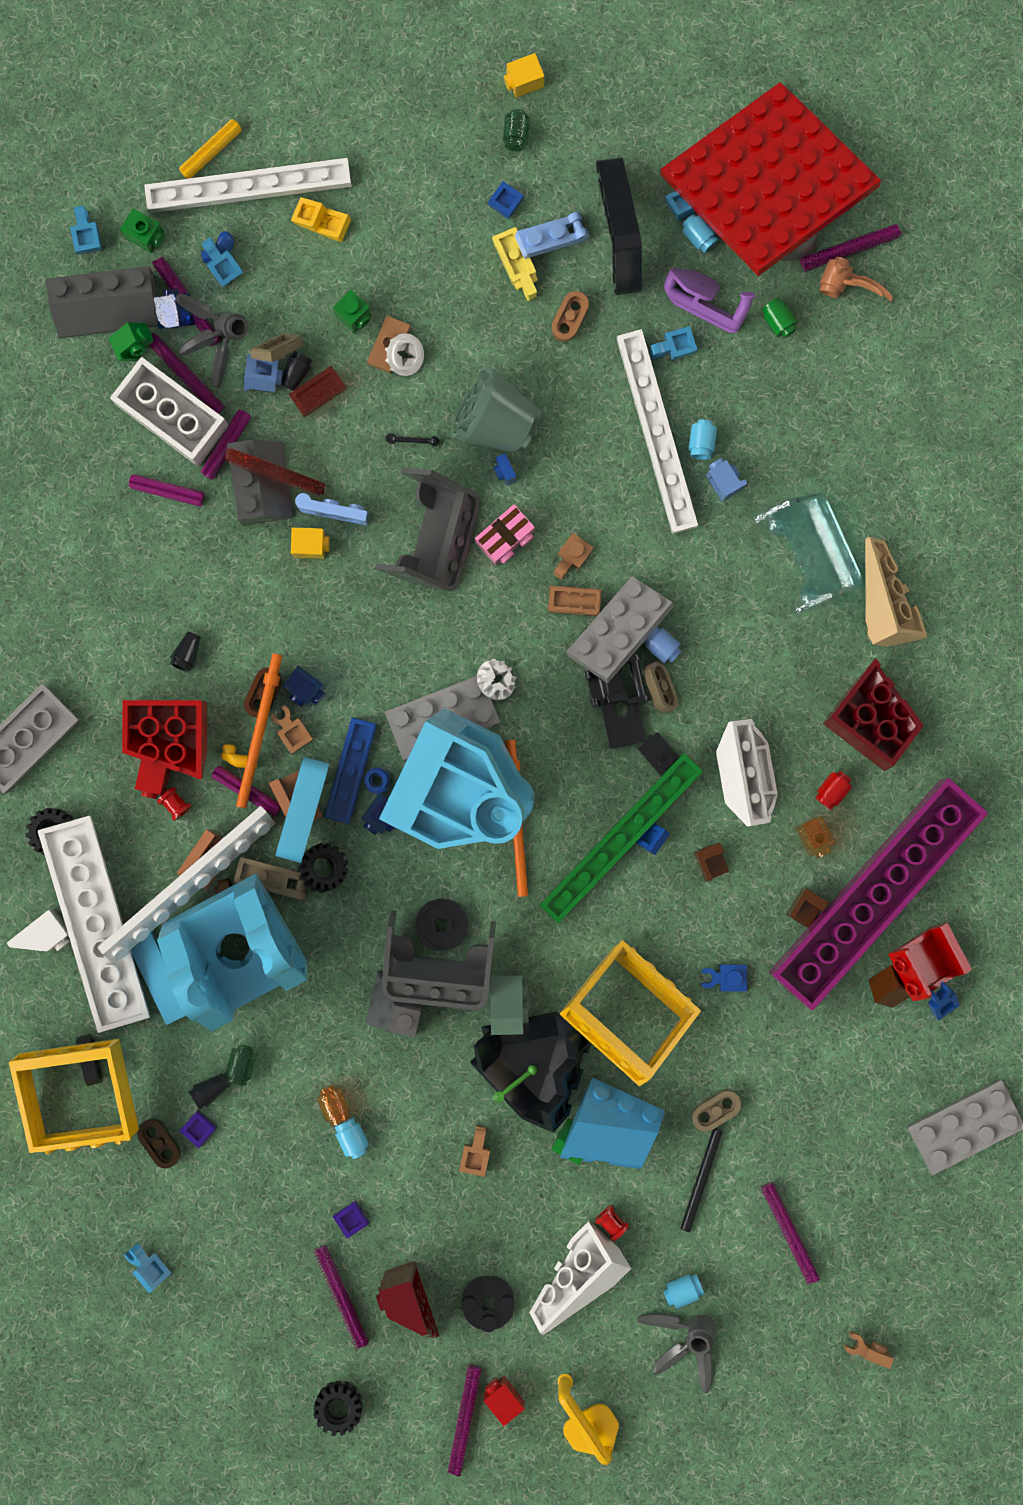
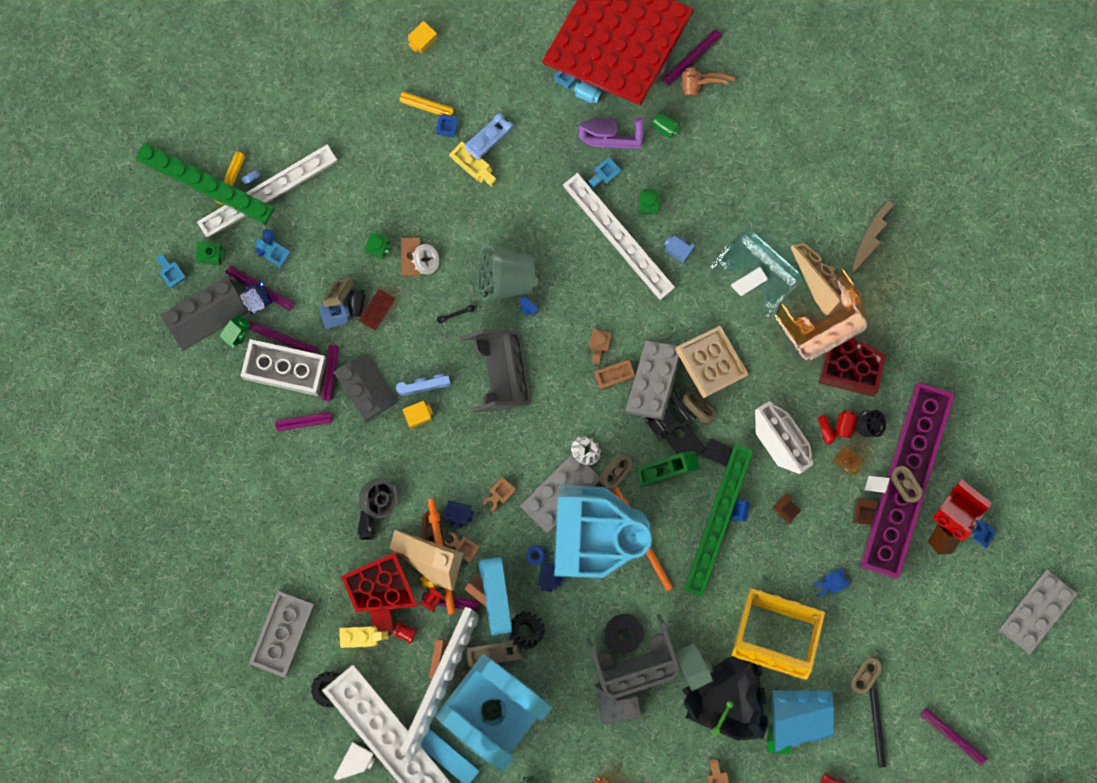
camera: 25 degrees left, 5 degrees down
(117, 785) = (361, 636): none -> light yellow hinge
(175, 141) = (205, 184): none -> green plate
(213, 624) = (378, 498): none -> flat silver cylinder
(226, 324) = (295, 292): dark grey plant -> none
(228, 772) = (432, 594): none -> red bush
(236, 159) = (251, 177): none -> medium blue tile
(244, 728) = (430, 559): none -> tan wedge
(274, 471) = (376, 376): clear red axle -> none
(321, 220) = (327, 193): yellow slope -> none
(350, 770) = (514, 556): blue tile -> none
(368, 683) = (500, 492): none -> medium nougat plate
(492, 162) = (426, 104): none -> yellow axle
(505, 535) = (548, 350): brick -> none
(516, 130) = (432, 76): clear green brick -> none
(520, 722) = (615, 473): none -> dark tan plate
(570, 317) = (525, 185): medium nougat plate -> none
(588, 746) = (668, 468): none -> green slope
(621, 225) = (533, 109): black beam -> none
(663, 645) = (684, 379): medium blue brick -> none
(701, 638) = (711, 361): none -> tan plate
(702, 439) = (651, 228): medium azure brick -> none
(713, 404) = (648, 202): none -> green brick
(794, 559) = (749, 281): none -> white sticker
(806, 787) = (827, 432): none -> red arm
(838, 881) = (877, 484): none -> white sticker
(863, 802) = (869, 423): none -> black wheel
(866, 667) = (817, 339): none -> clear orange windscreen
(875, 899) = (906, 484): none -> dark tan plate
(967, 575) = (869, 241): none -> dark tan slope

